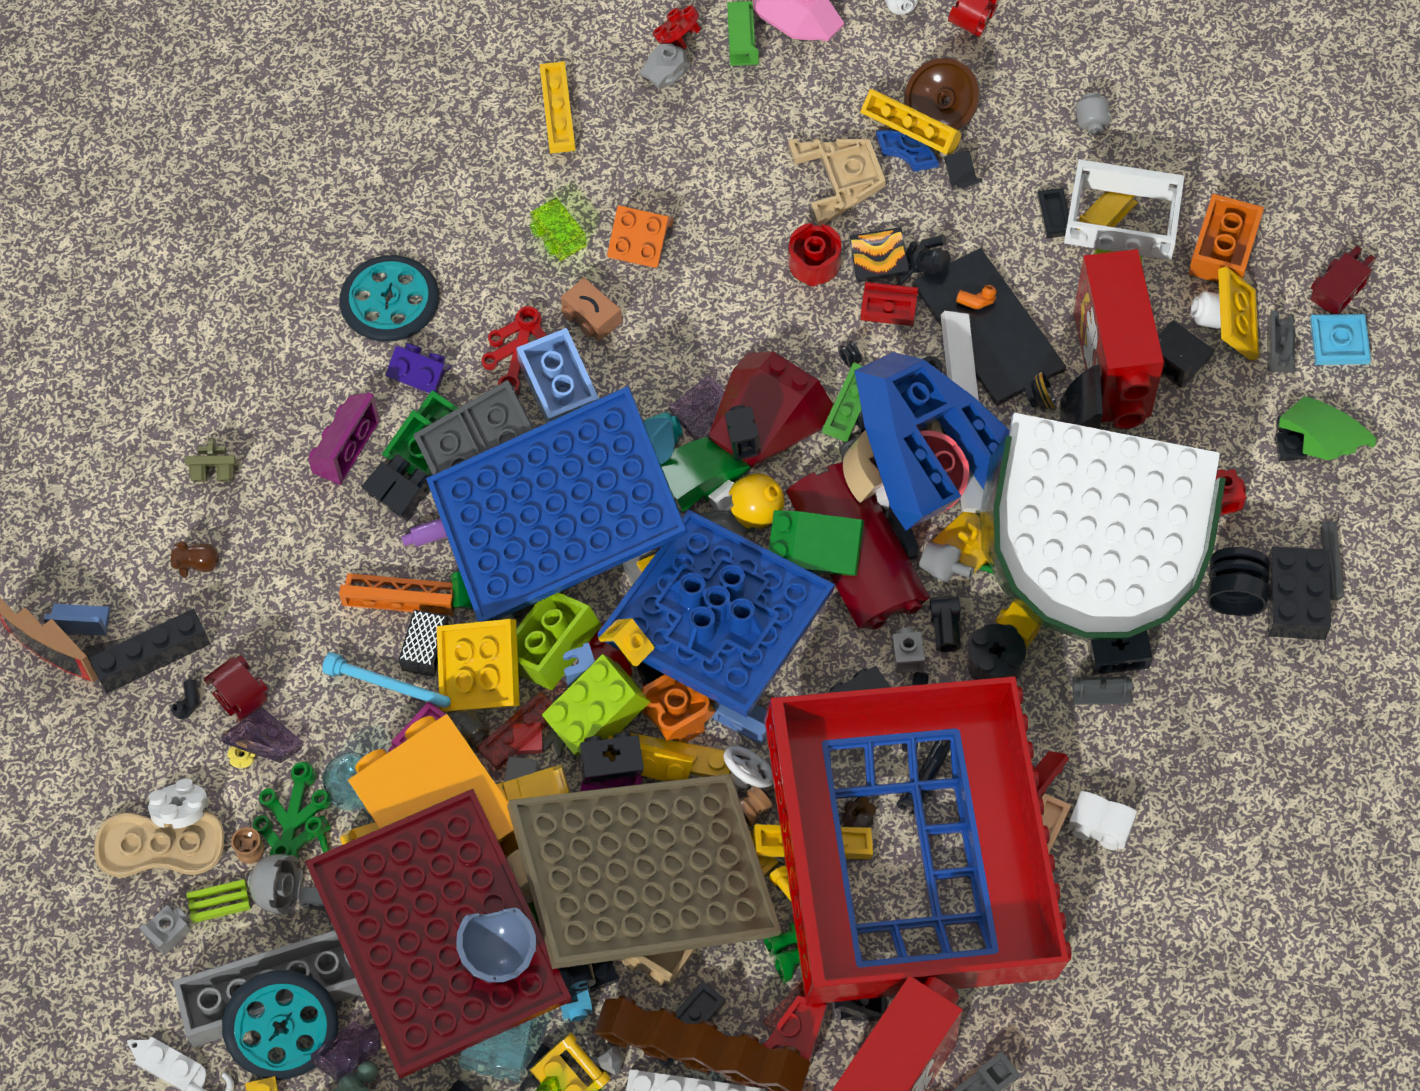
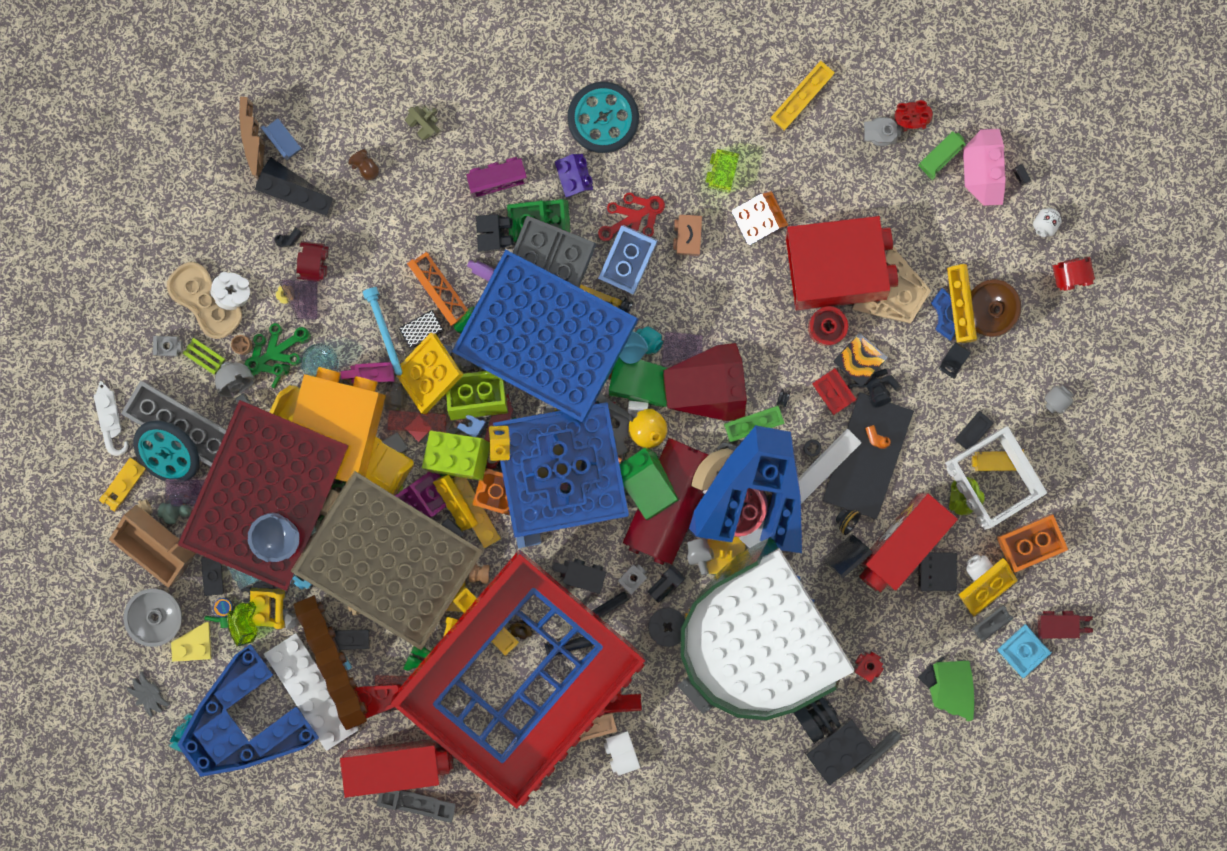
camera: 45 degrees right, 25 degrees up
(597, 767) = (436, 499): black brick -> none
(742, 432) = (673, 392): black brick -> none
(745, 771) = (492, 555): white piece -> none
(758, 190) = (840, 262): none -> red brick

